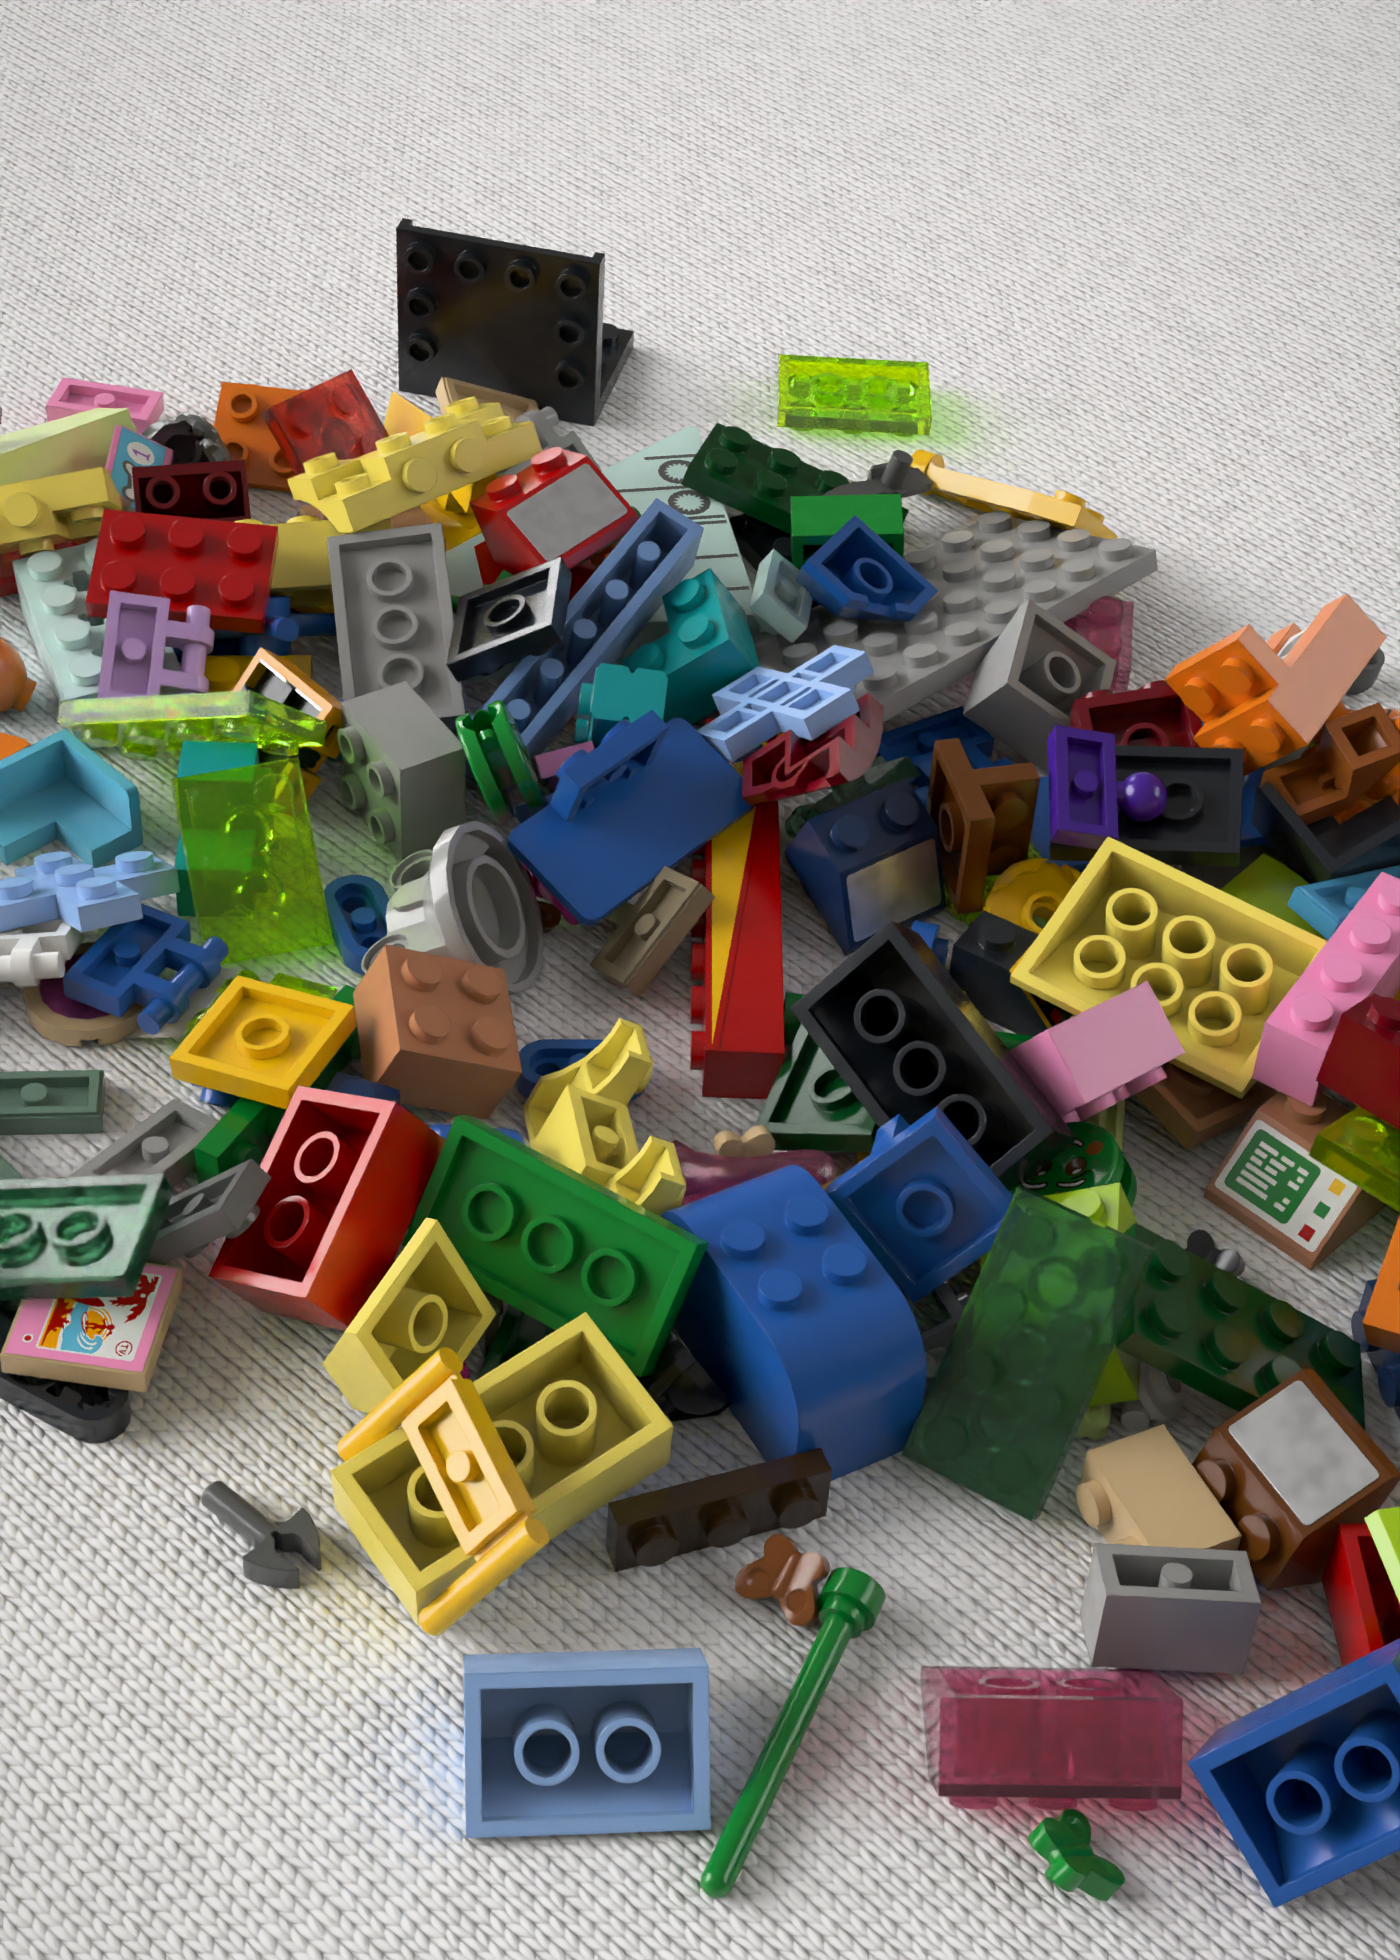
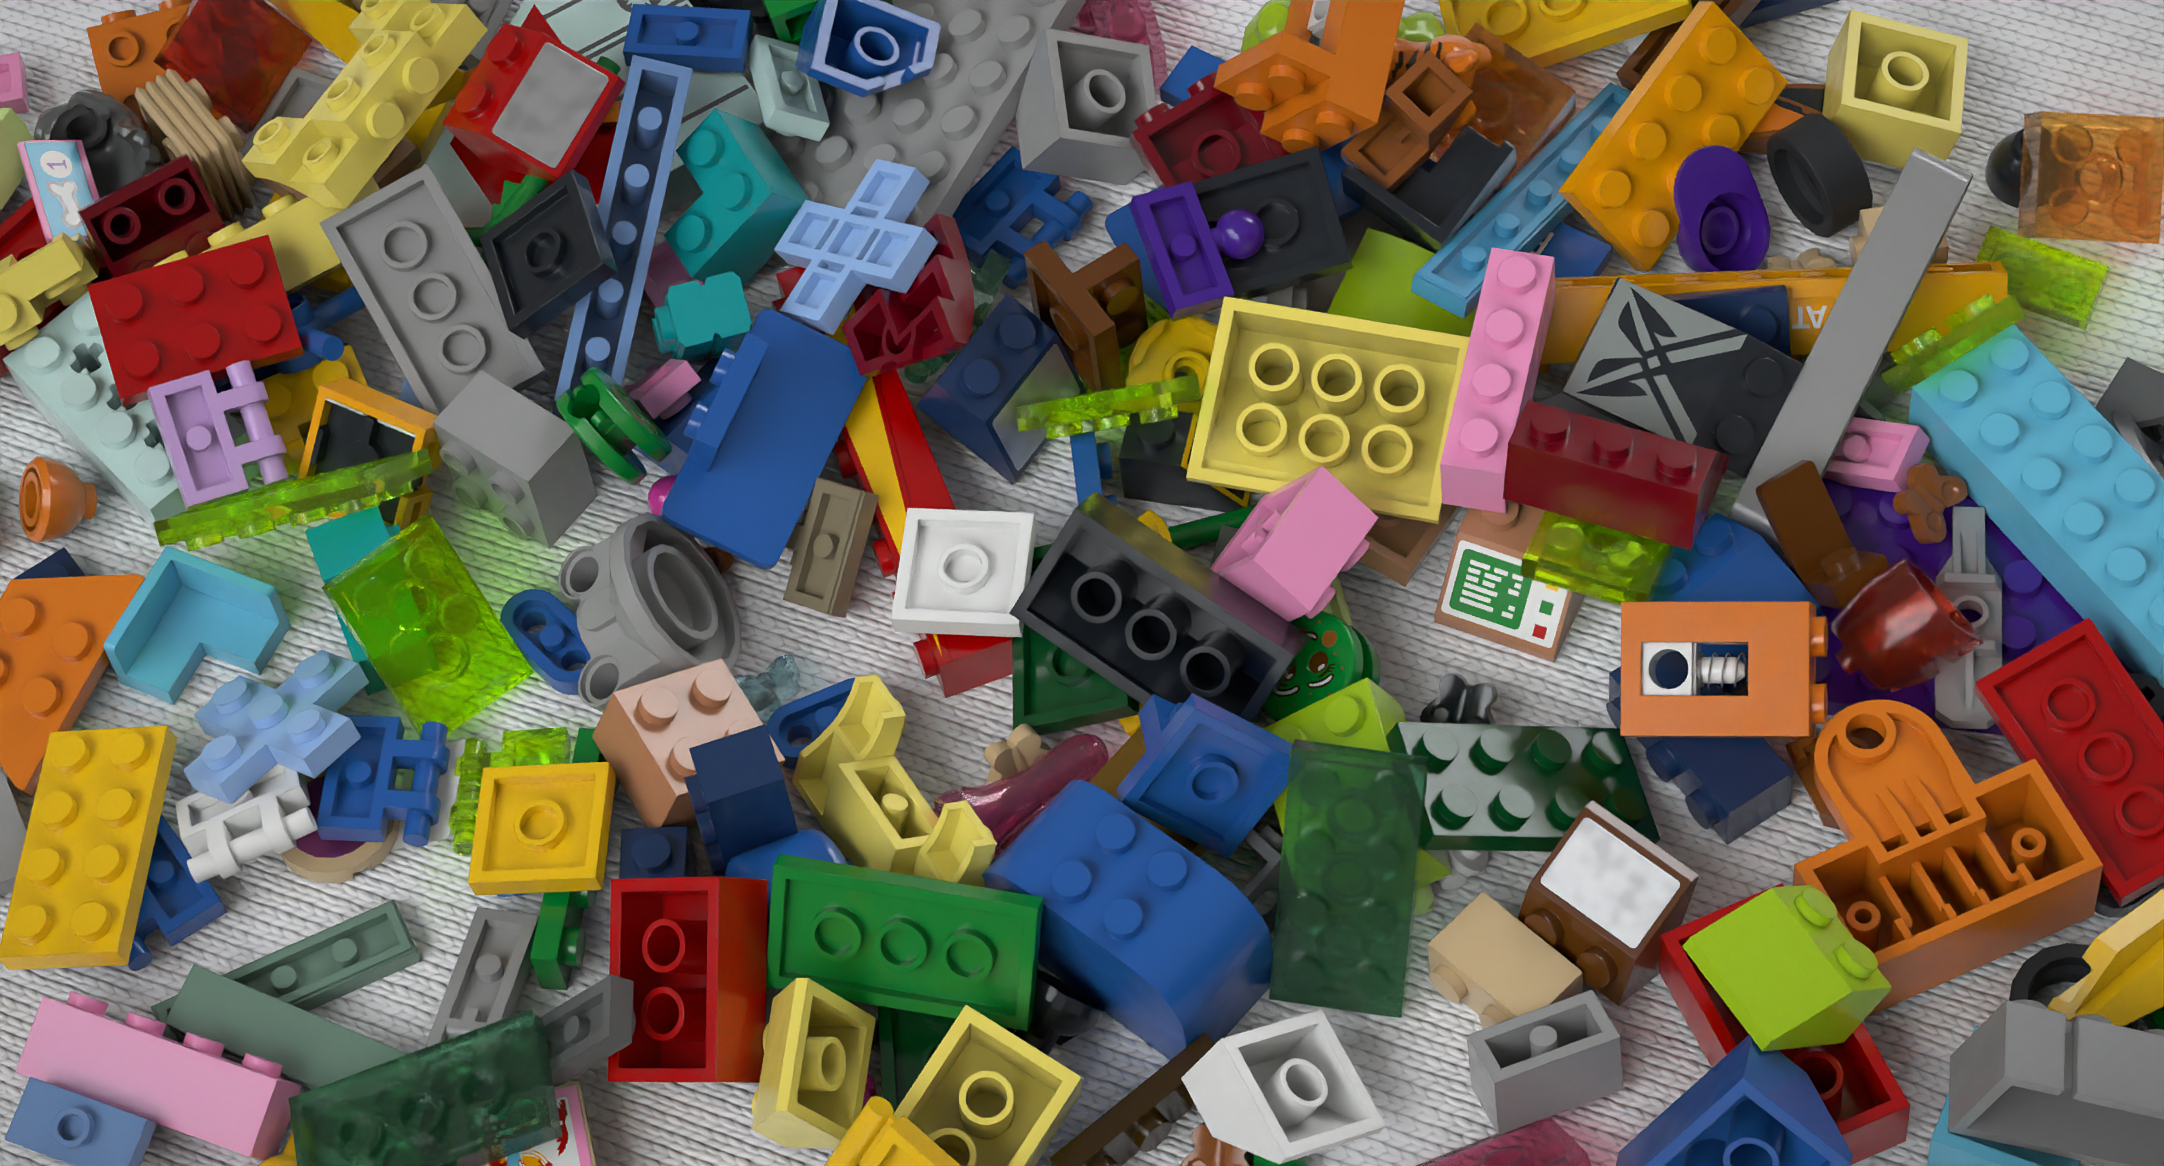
camera: 10 degrees left, 15 degrees up
(267, 466) = (182, 125): none -> tan brick
(460, 1059) = (739, 795): none -> dark blue brick
(539, 1025) = (775, 684): none -> clear light blue piece
(726, 536) = (690, 36): none -> blue plate
(756, 975) = (963, 571): none -> white plate
(878, 1522) = (1283, 1090): none -> white slope
(962, 894) = (1109, 407): none -> clear neon green plate

